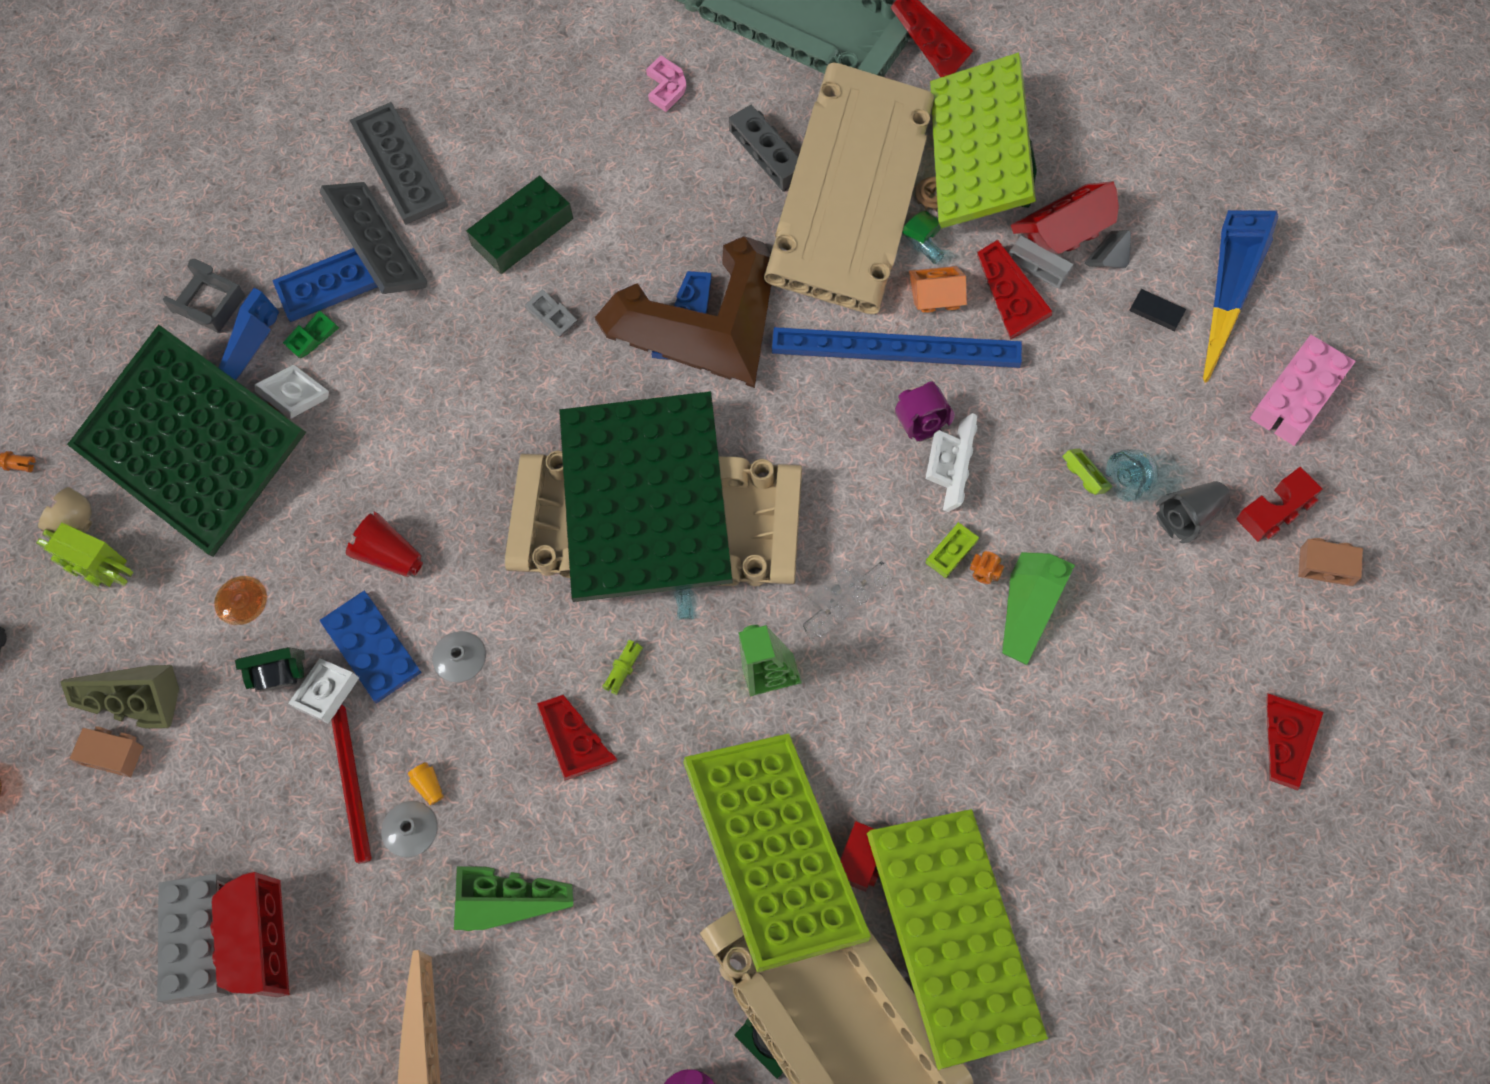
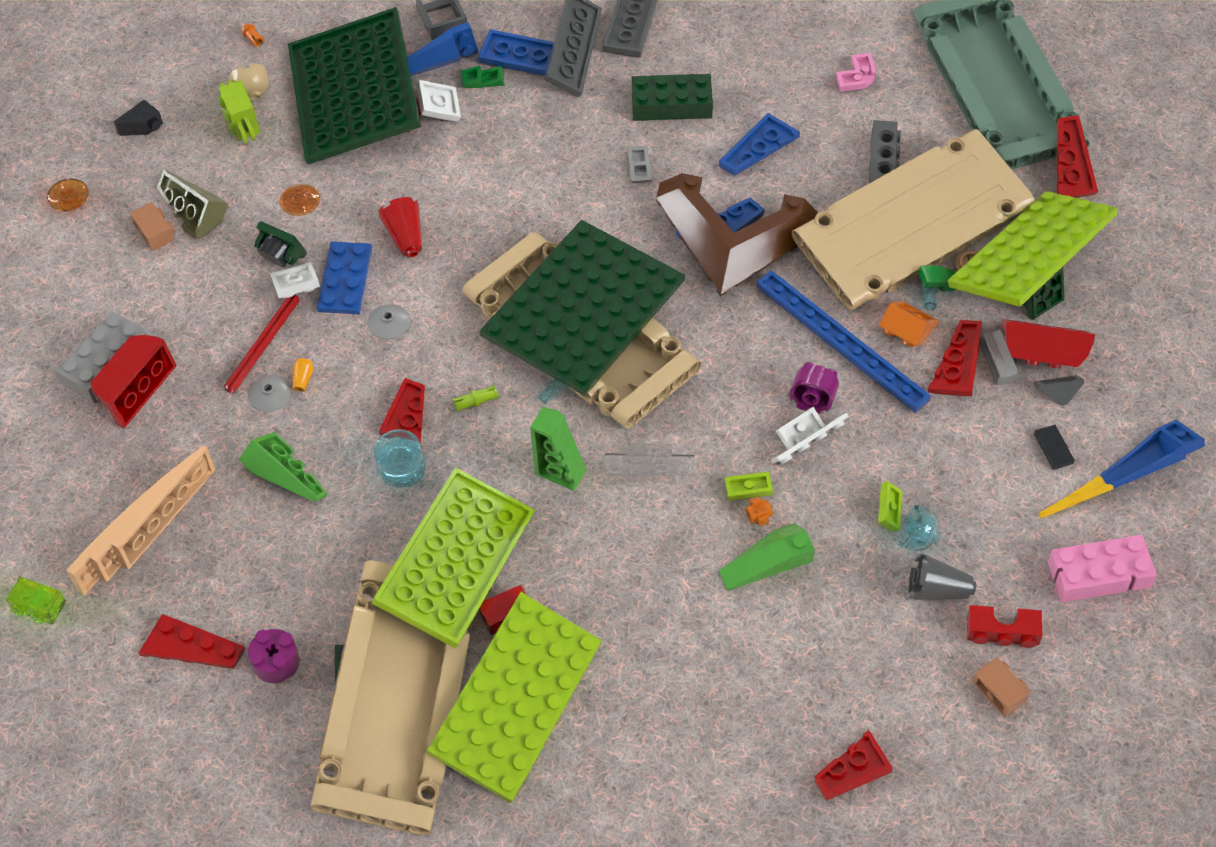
camera: 40 degrees right, 10 degrees down
(613, 775) = (395, 448): none -> clear light blue wheel
(642, 214) = (761, 141): none -> blue wing

